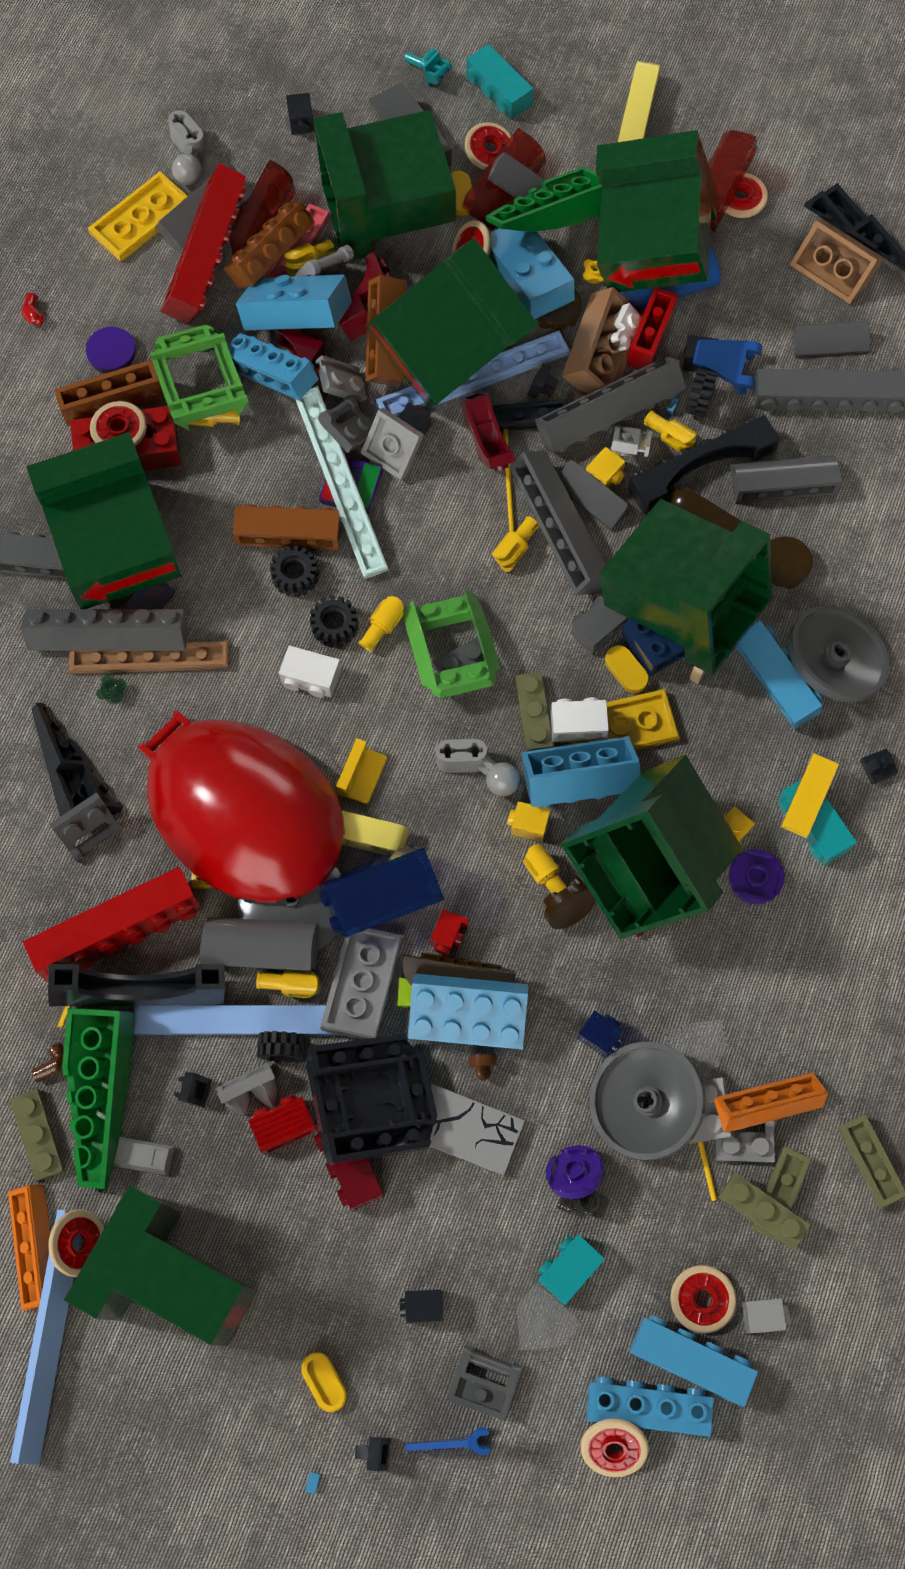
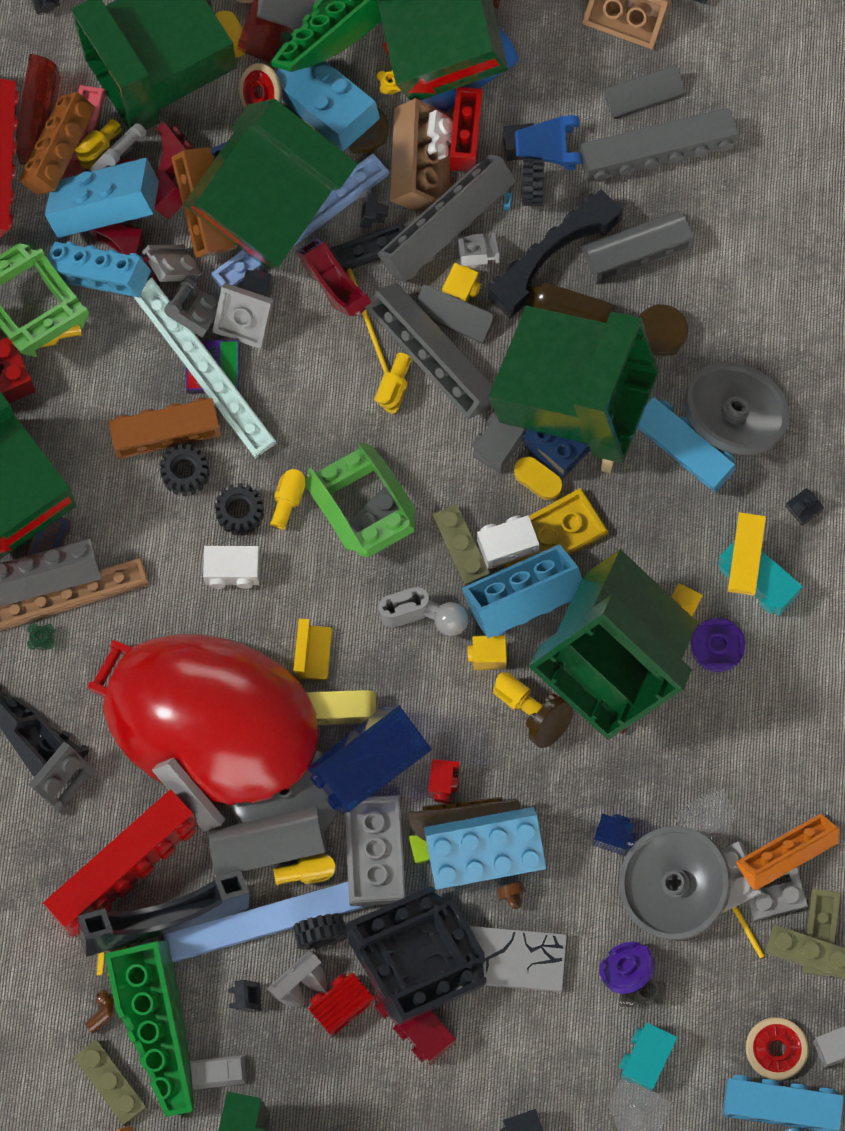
camera: 15 degrees left, 0 degrees up
(198, 876) = (177, 780): none -> light grey tile
(672, 432) = (515, 229): yellow arm -> none

